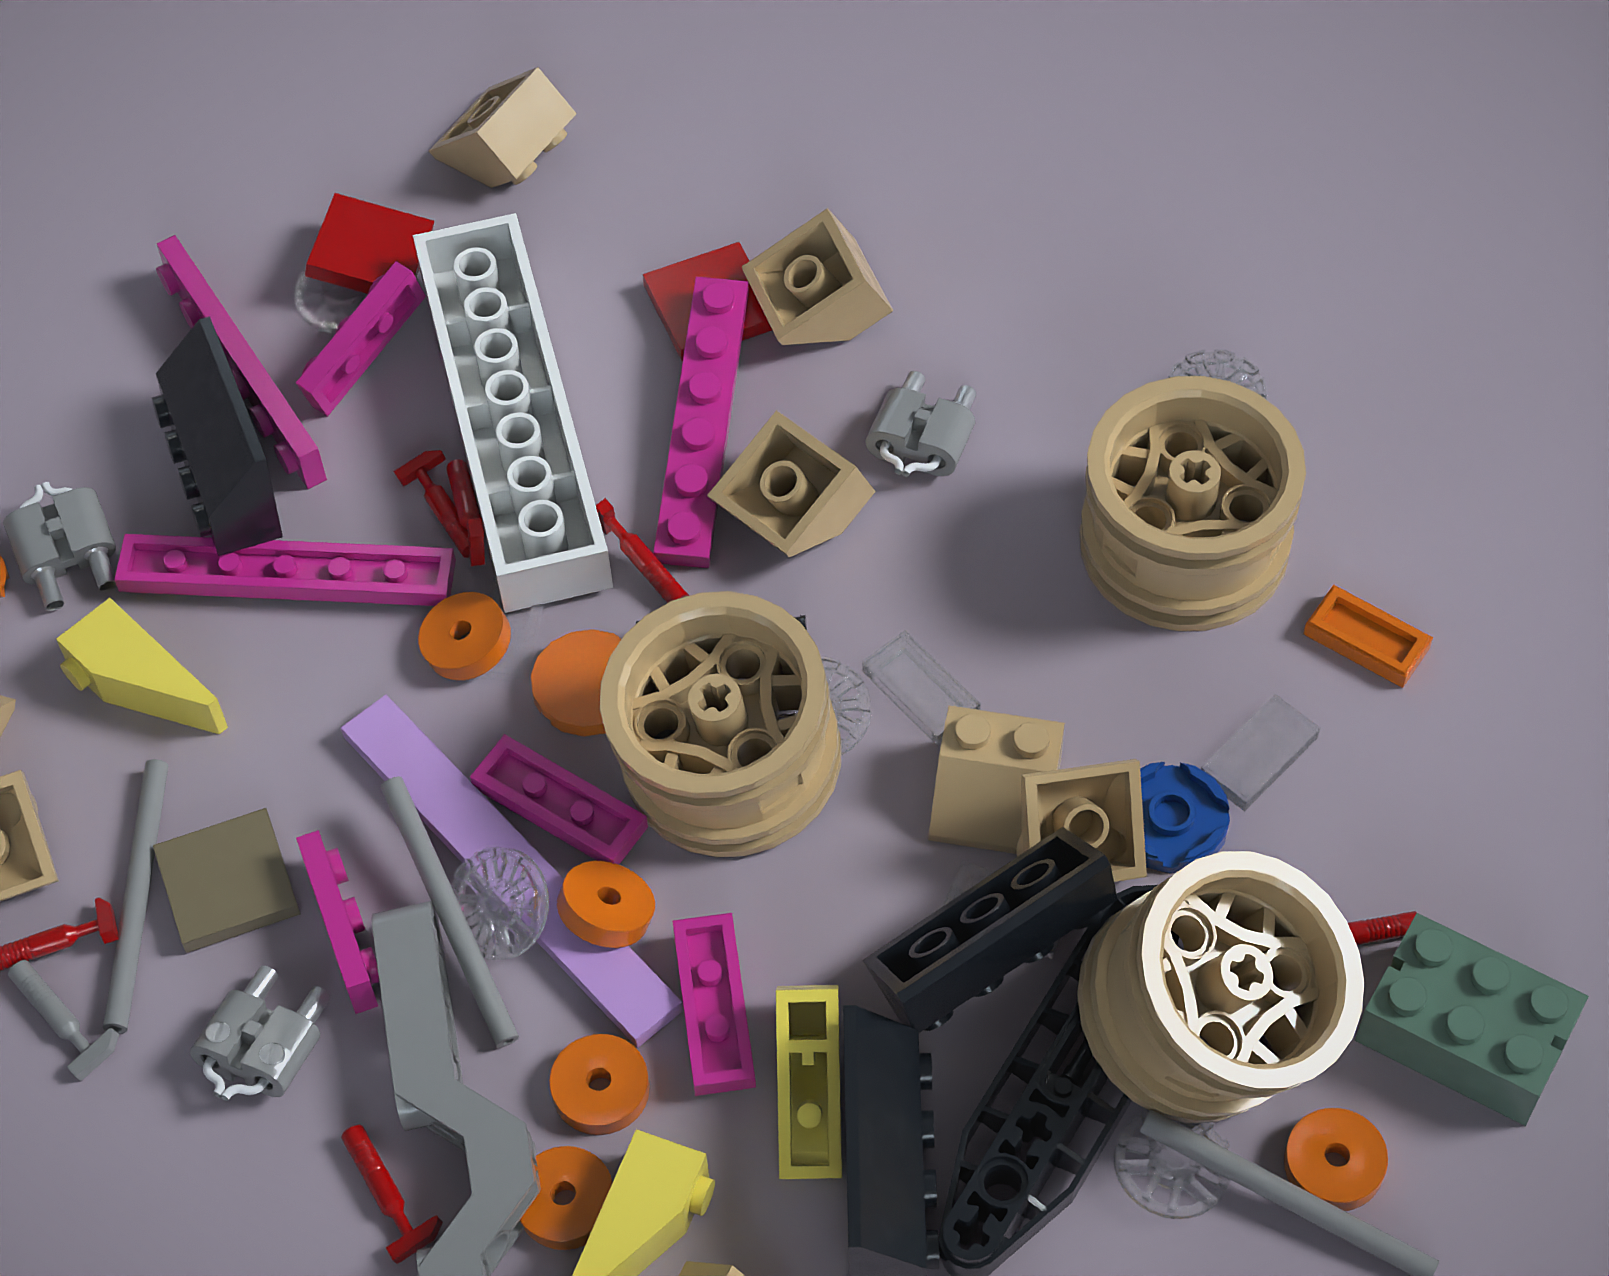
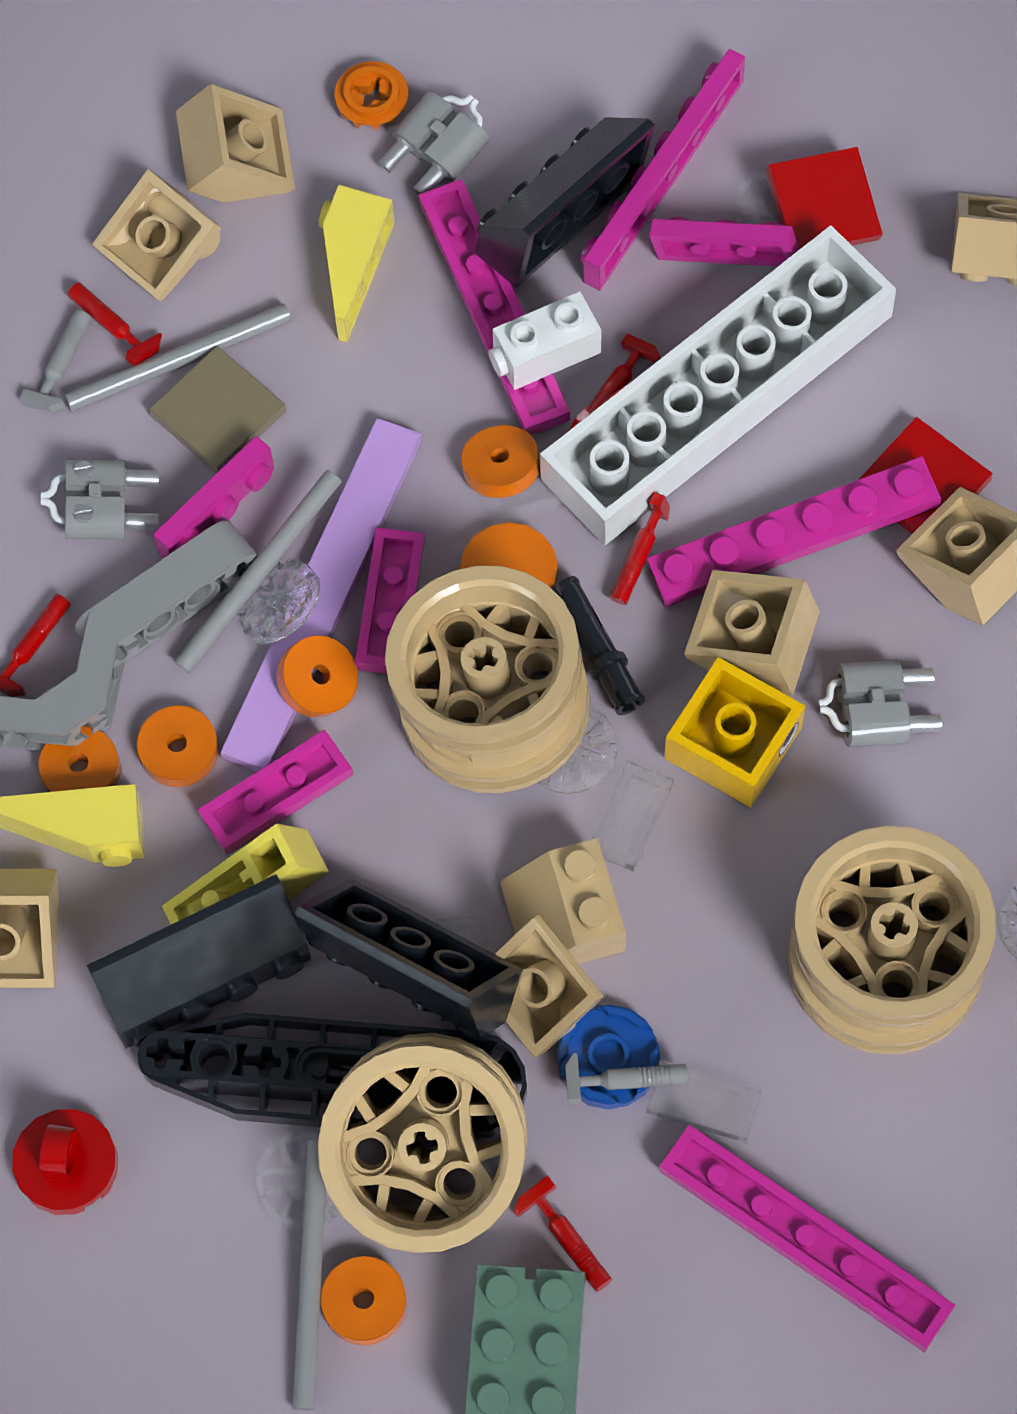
camera: 65 degrees right, 10 degrees up
(369, 525) = (545, 341): none -> white brick
(892, 549) = (734, 732): none -> yellow brick
(1208, 804) = (622, 1078): none -> light grey piece
(1368, 636) = (863, 1144): orange tile -> none
(1445, 721) = (807, 1238): none -> dark pink plate

